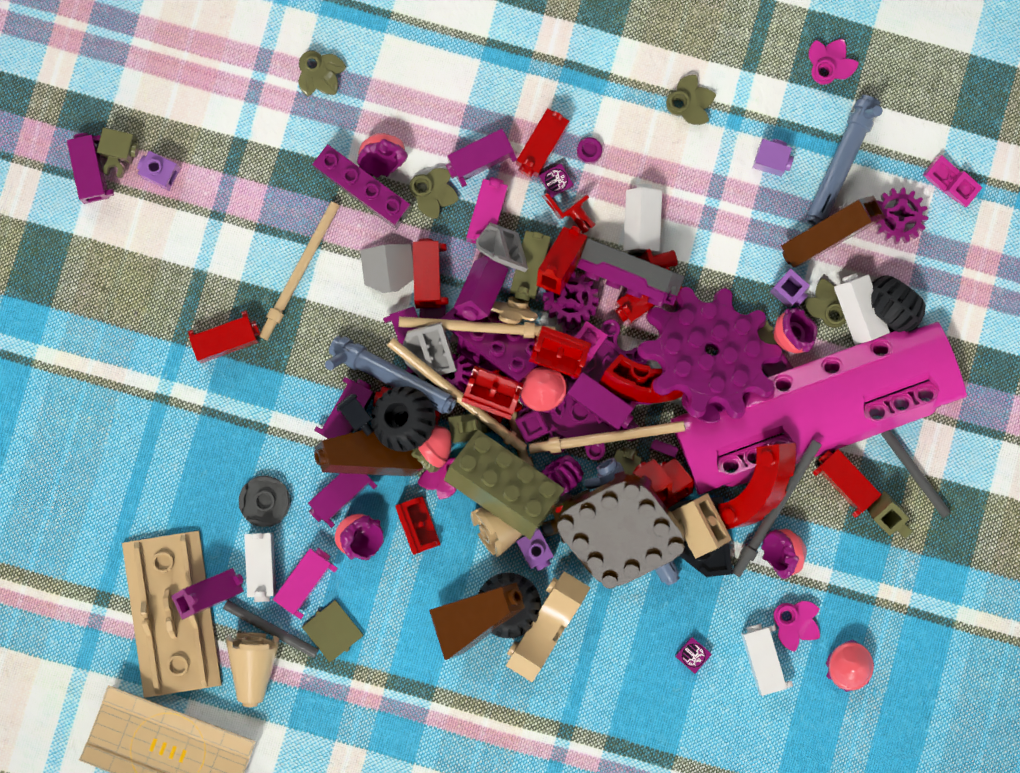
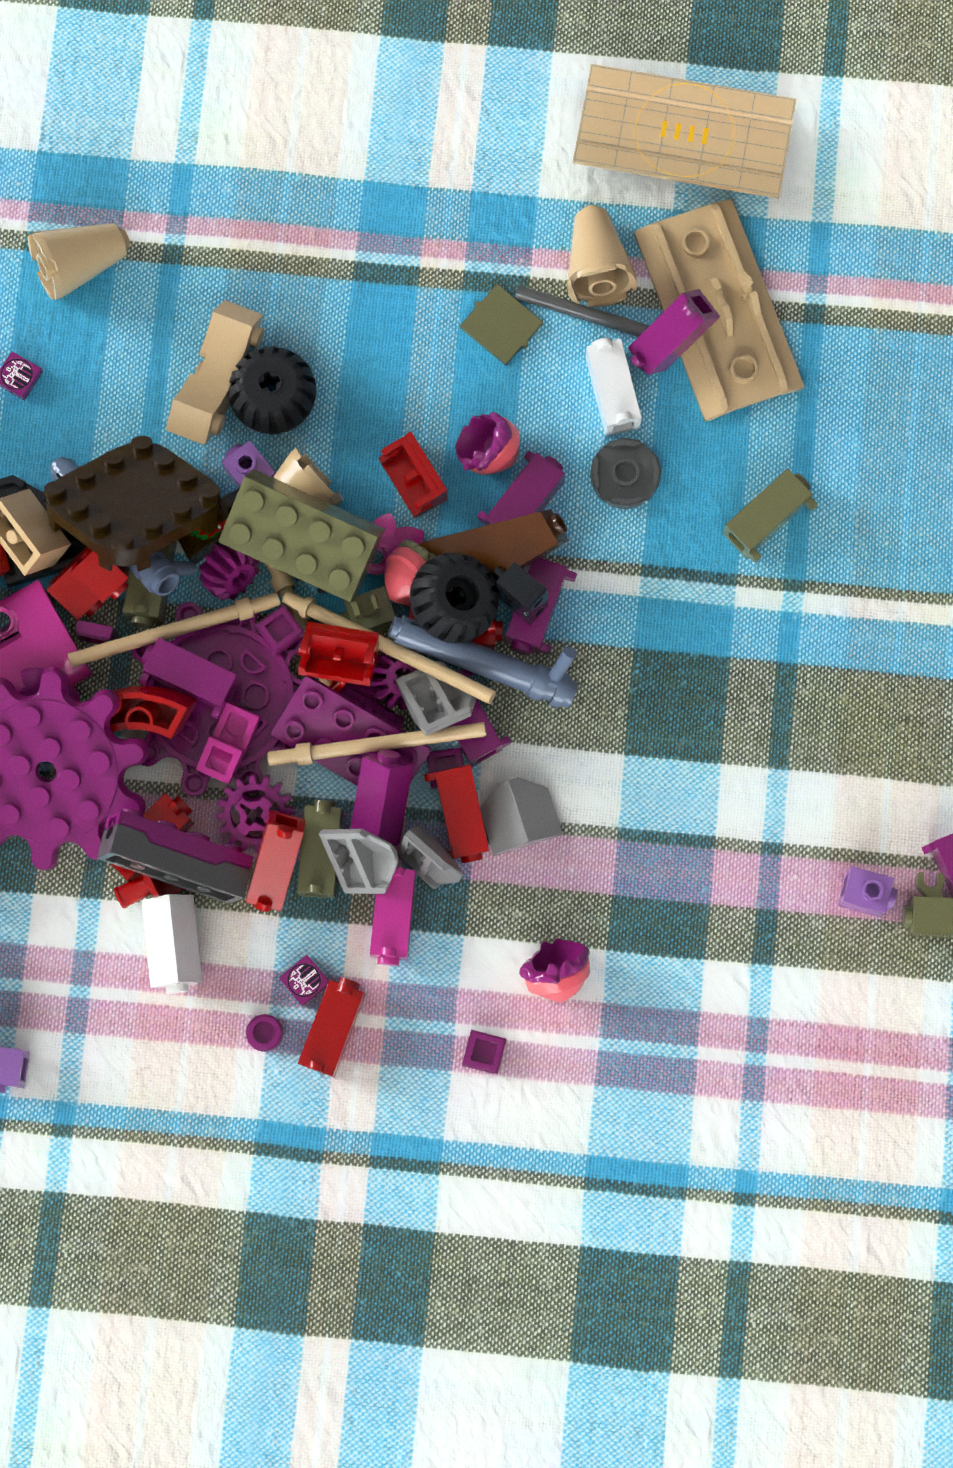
camera: 170 degrees right, 5 degrees down
(167, 450) = (769, 513): none -> olive brick
(224, 338) = (724, 675): red brick -> none
(275, 314) = (661, 723): tan bar -> none
(304, 581) = (550, 376): dark pink brick -> none
(322, 76) = (663, 1074): olive plate -> none
(362, 187) = (575, 918): magenta piece -> none
(437, 192) = (469, 933): olive plate -> none
(442, 111) = (484, 1052): none -> magenta tile
(455, 246) = (428, 858): none -> light grey slope
(472, 619) = (313, 363): reddish brown slope -> none
(480, 156) = (418, 993): magenta brick -> none
(514, 311) = (330, 779): tan plate -> none
(543, 390) = (269, 678): coral hair -> none
(559, 352) = (255, 727): red hinge -> none
(575, 211) = (271, 940): red bracket -> none
(636, 737) = (75, 255): none -> tan cone
(694, 100) = (125, 1131): olive plate -> none

